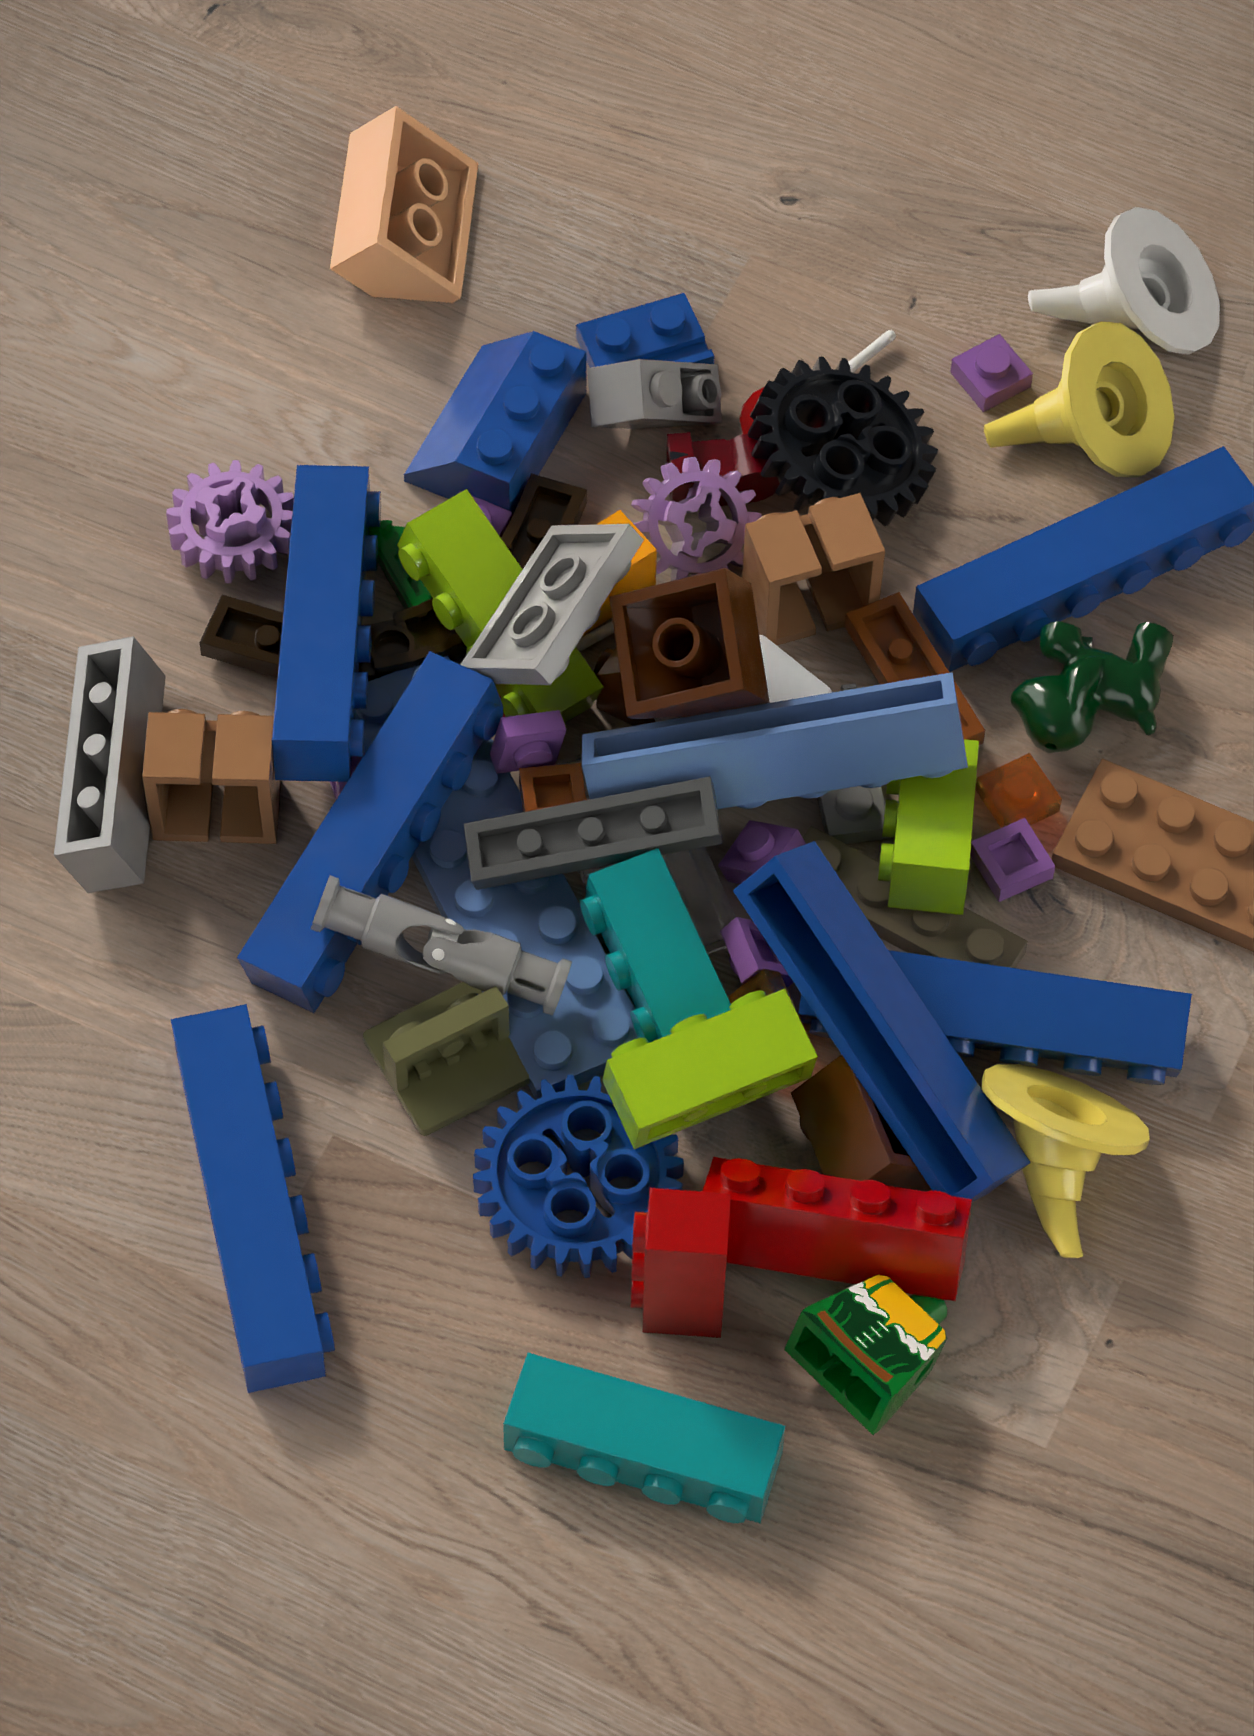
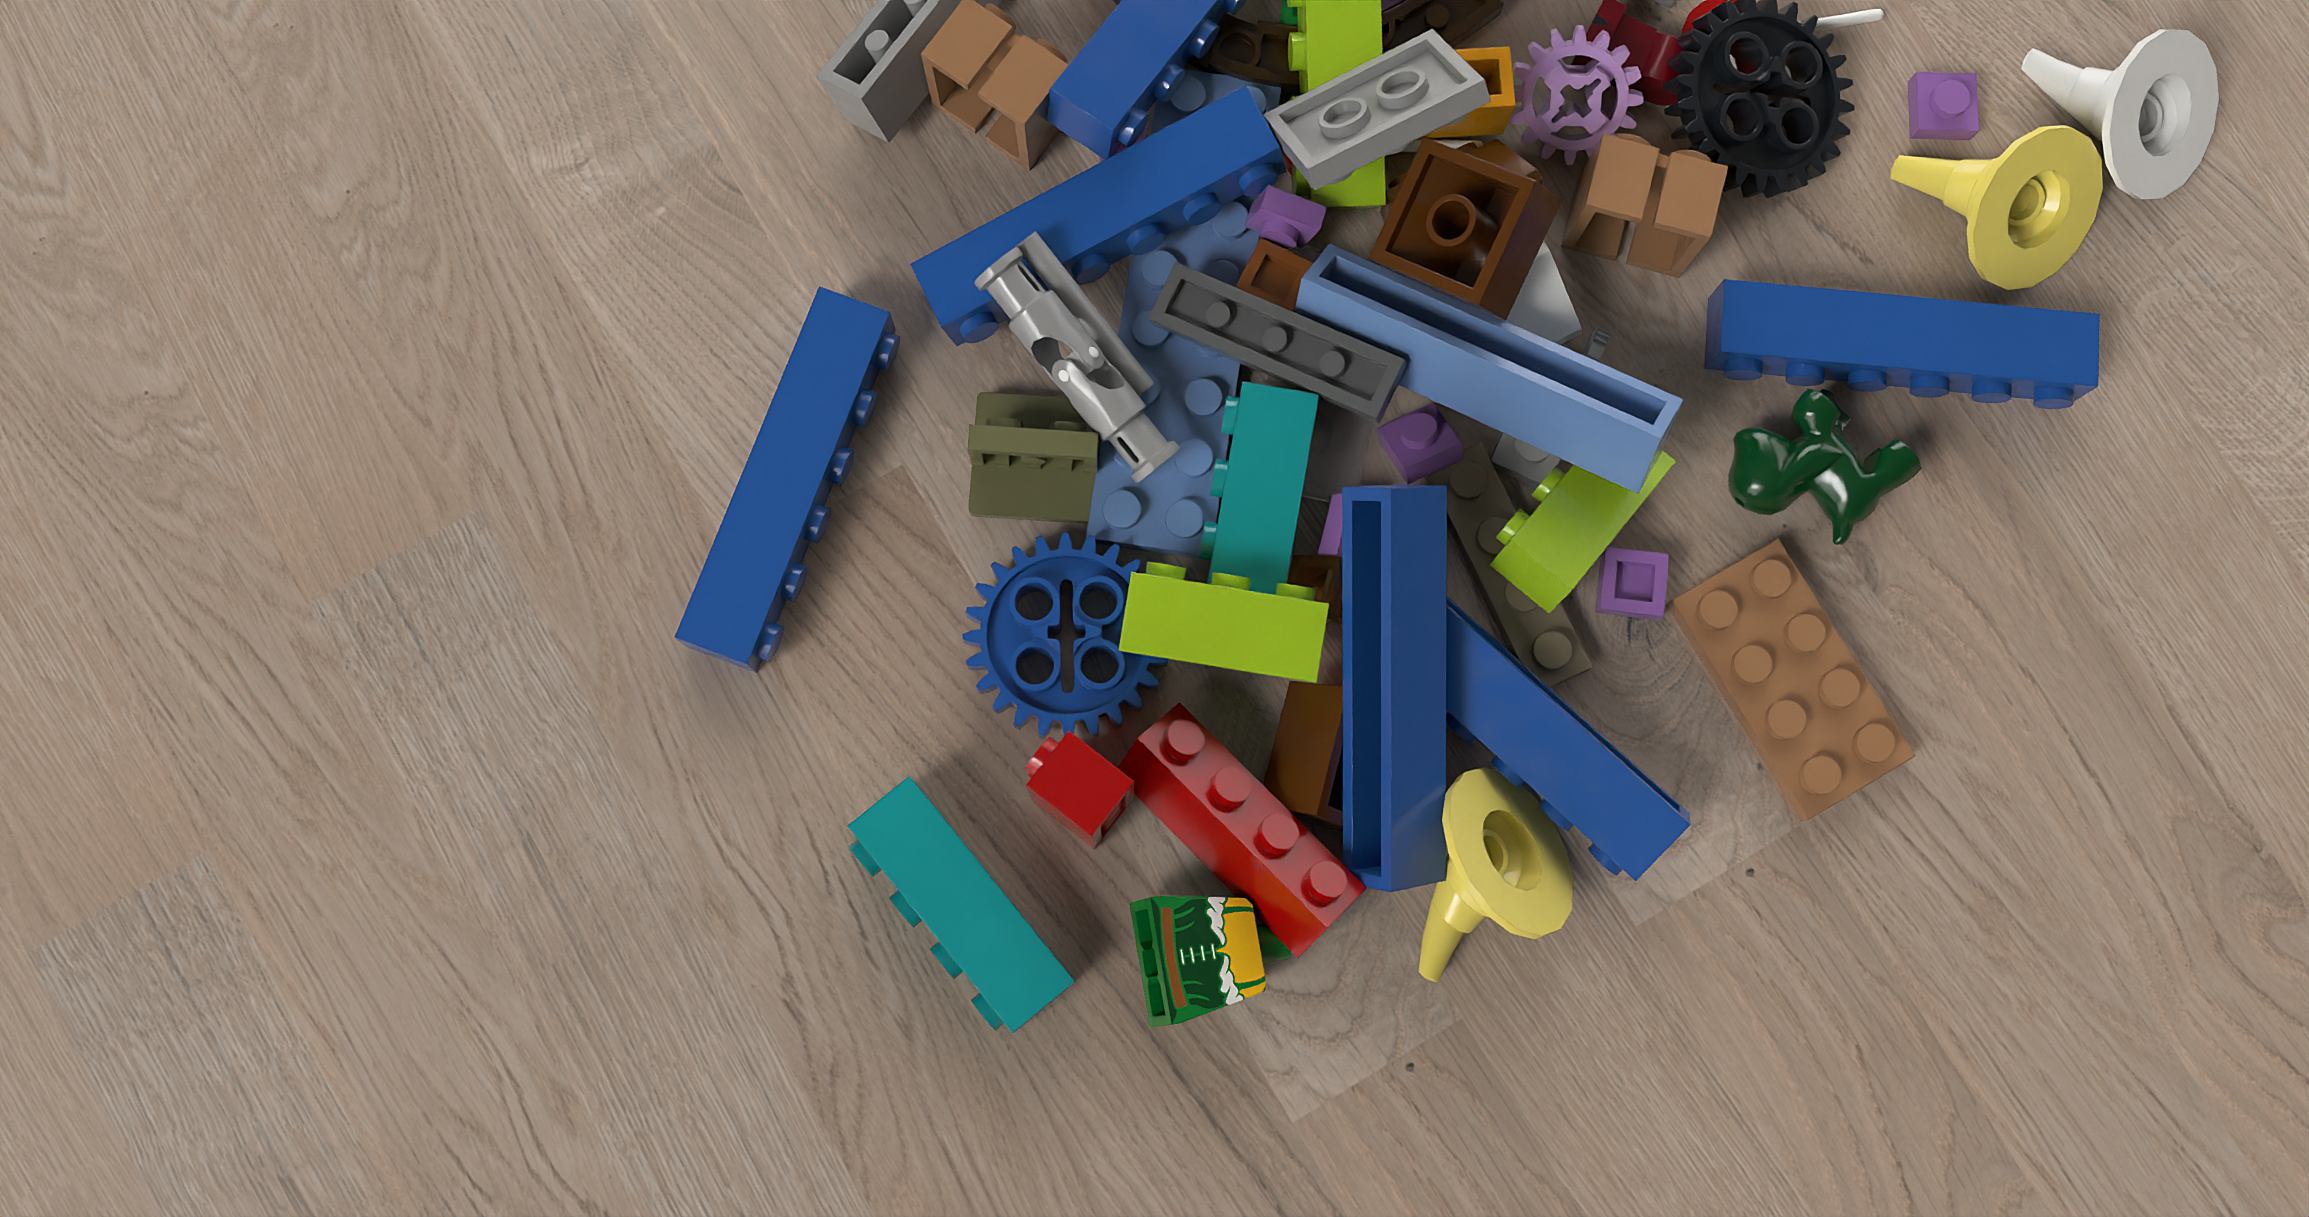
camera: 30 degrees right, 20 degrees up
(374, 885) = (1060, 281): none -> light grey bar
(901, 651) = (1672, 341): dark orange plate -> none
(1018, 792) = (1683, 523): clear orange plate -> none

